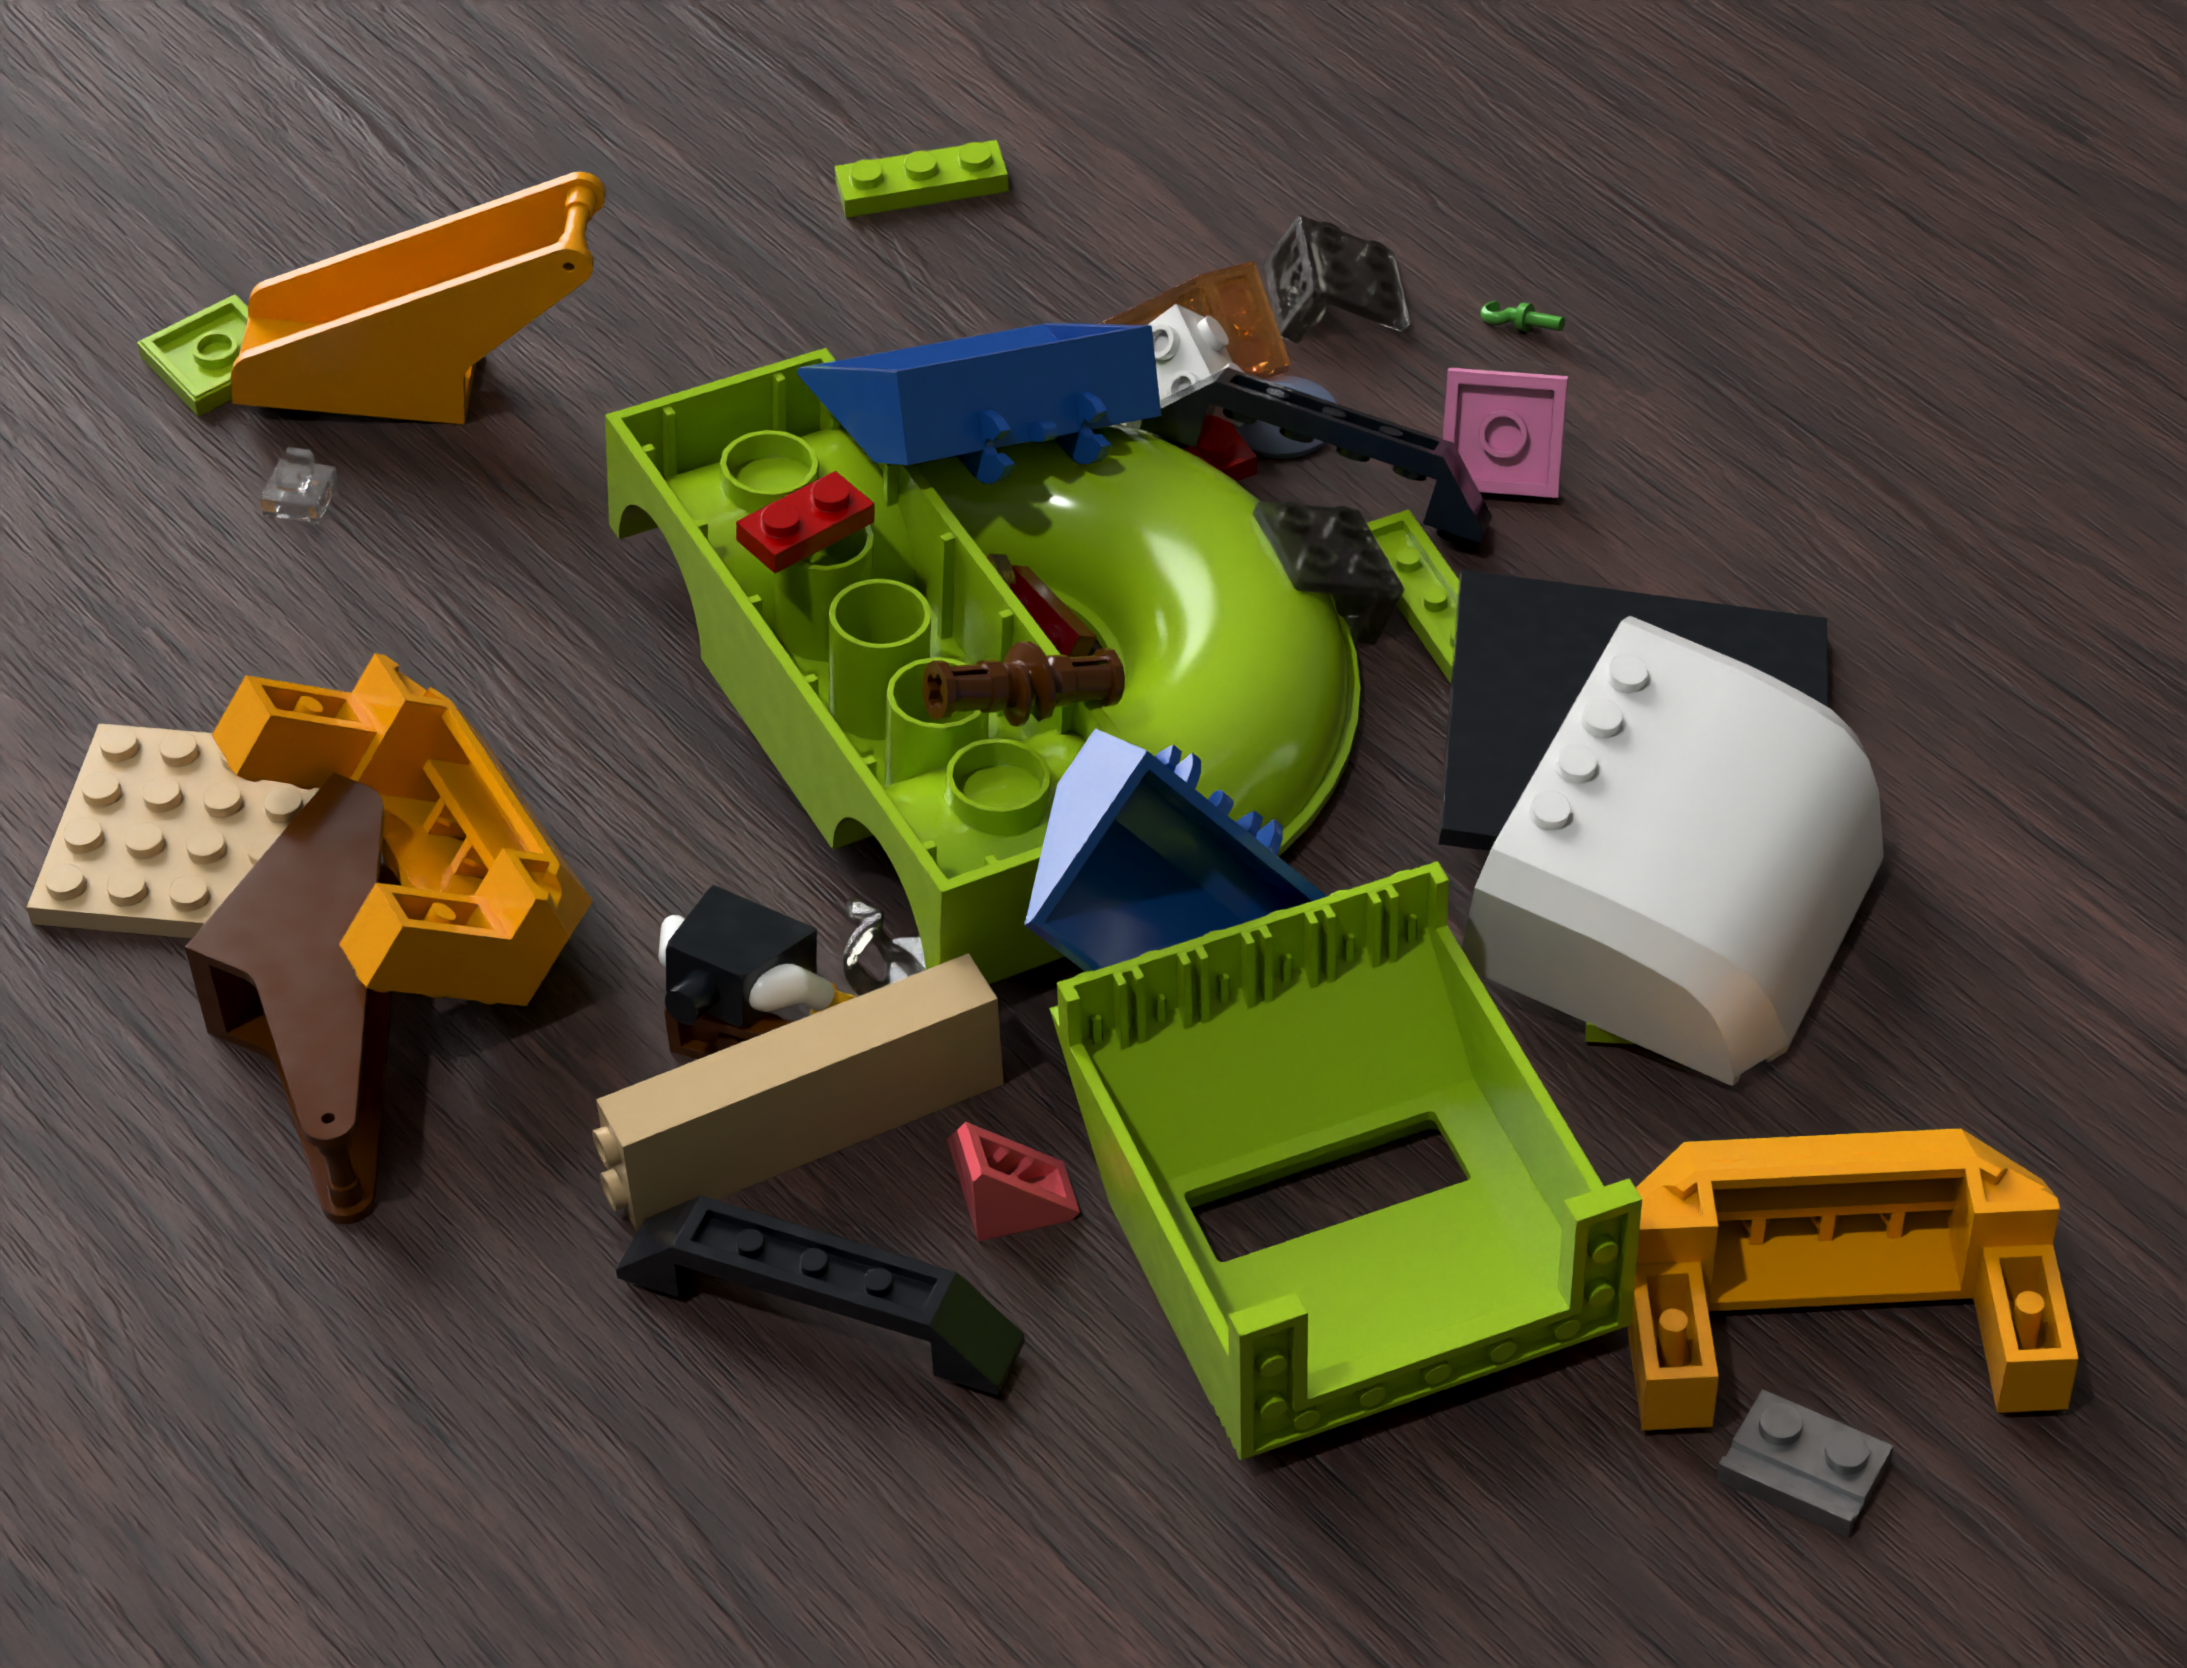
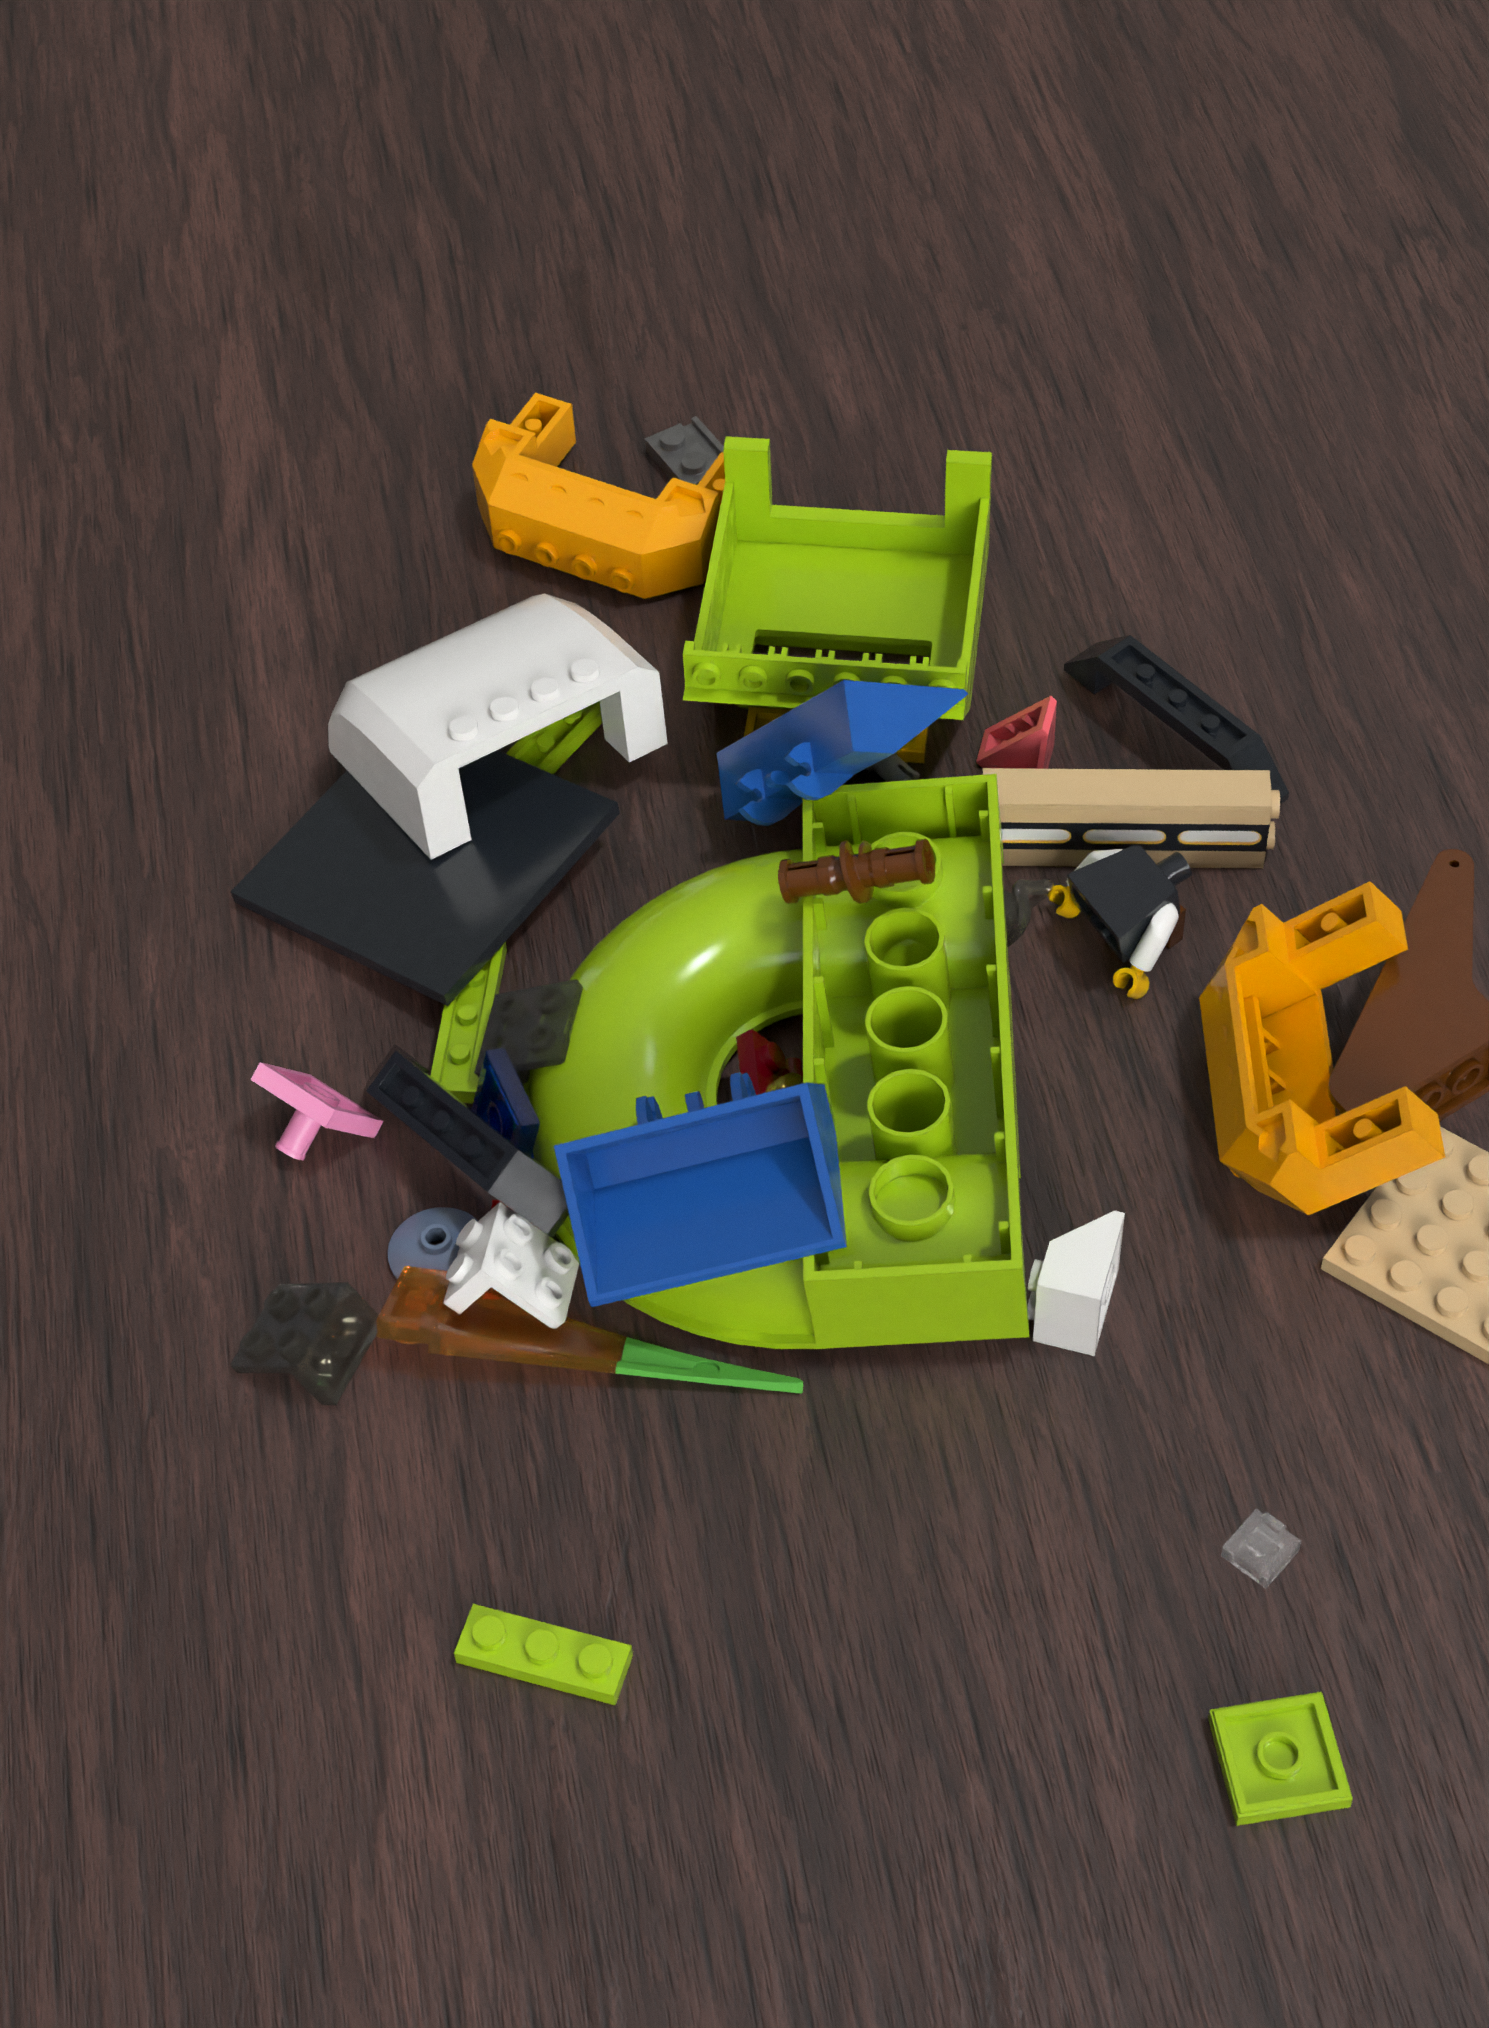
camera: 150 degrees left, 5 degrees up
(413, 313) = (1135, 1612): light orange piece -> none
(583, 574) = (1076, 1284): none -> white slope
(805, 522) = (923, 1090): red plate -> none
(1280, 472) = (504, 1102): none -> clear blue plate
(1522, 316) = (193, 1246): bright green hand -> none

